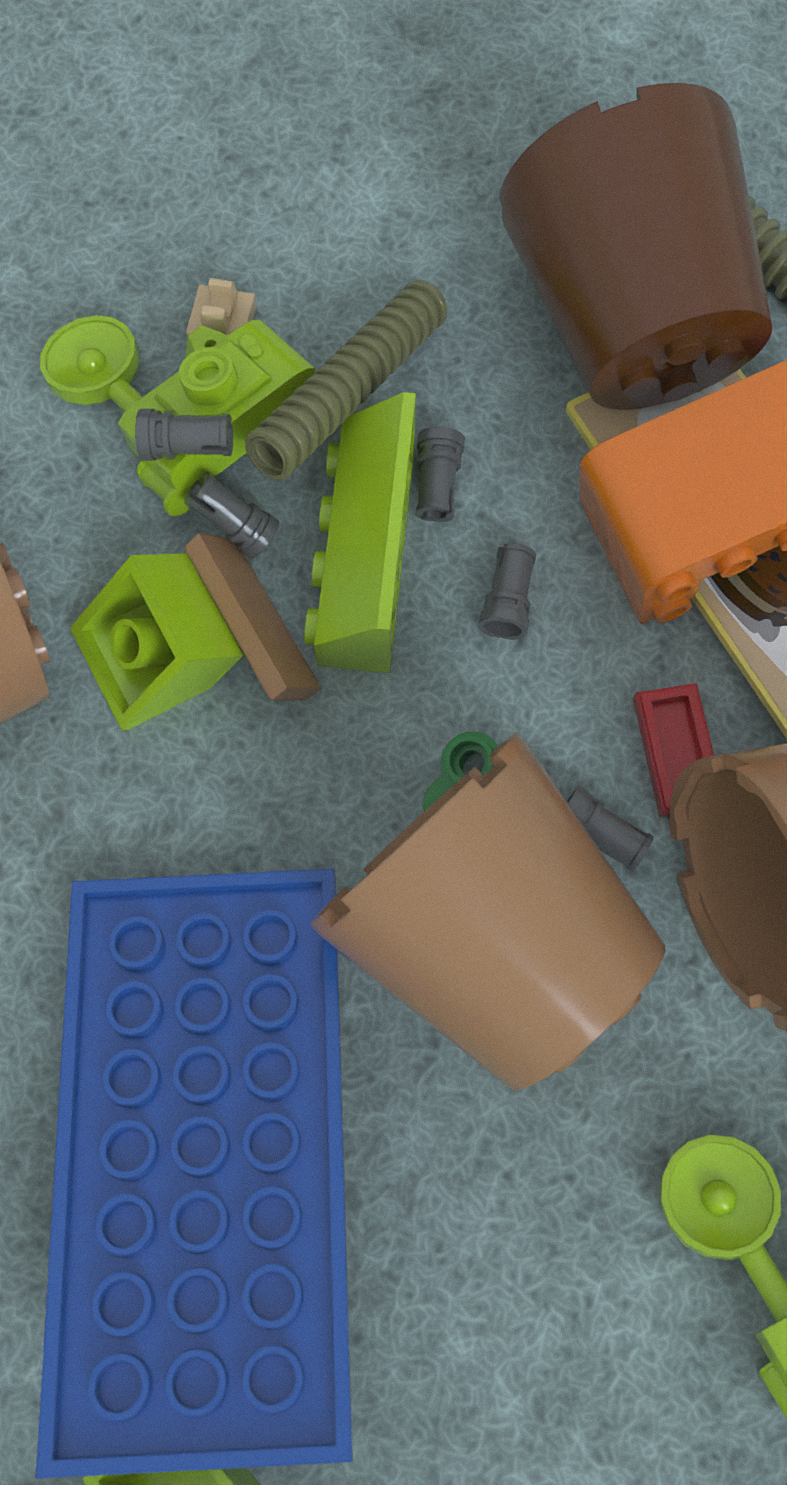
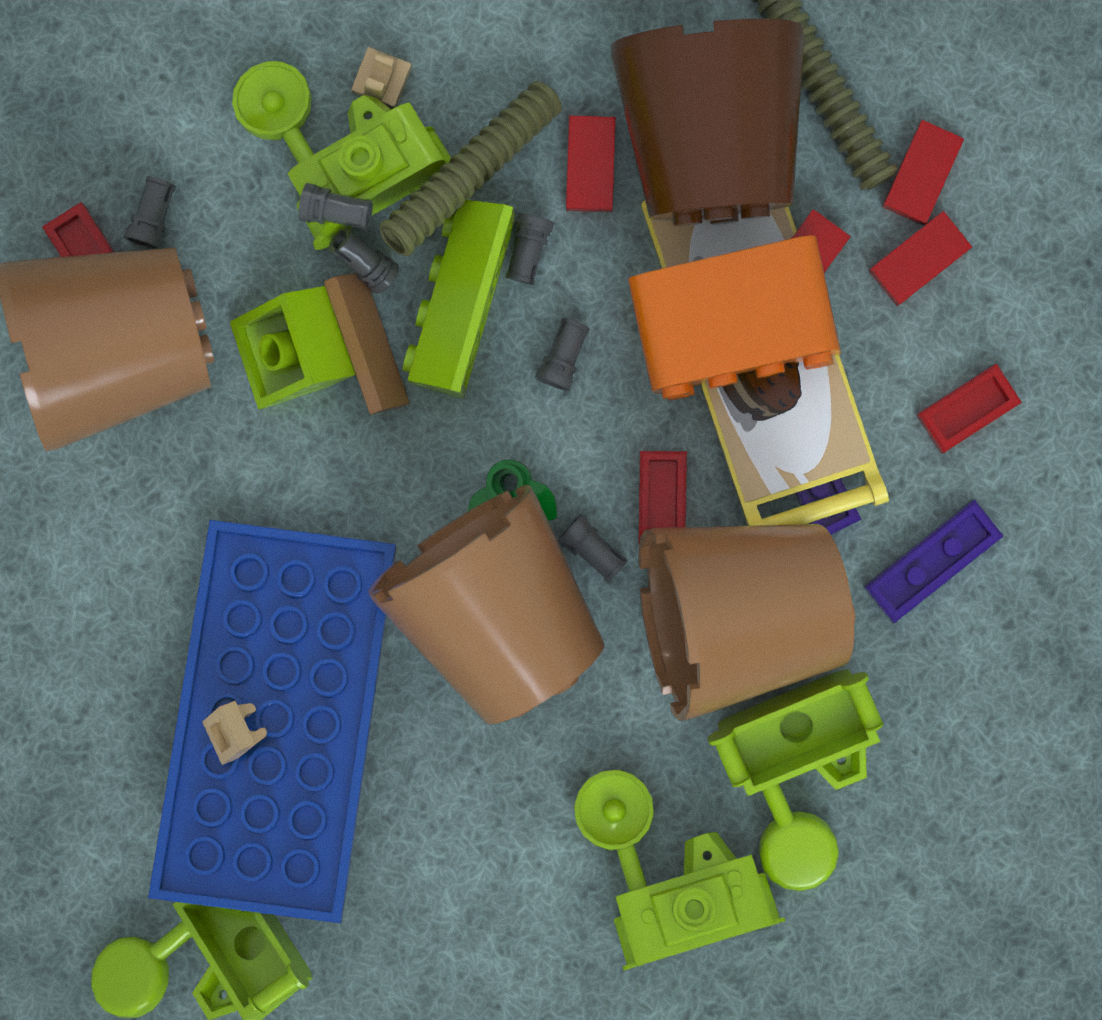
camera: 10 degrees right, 15 degrees up
(135, 1175) = (230, 732): none -> tan tile
(494, 371) = (590, 164): none -> red tile

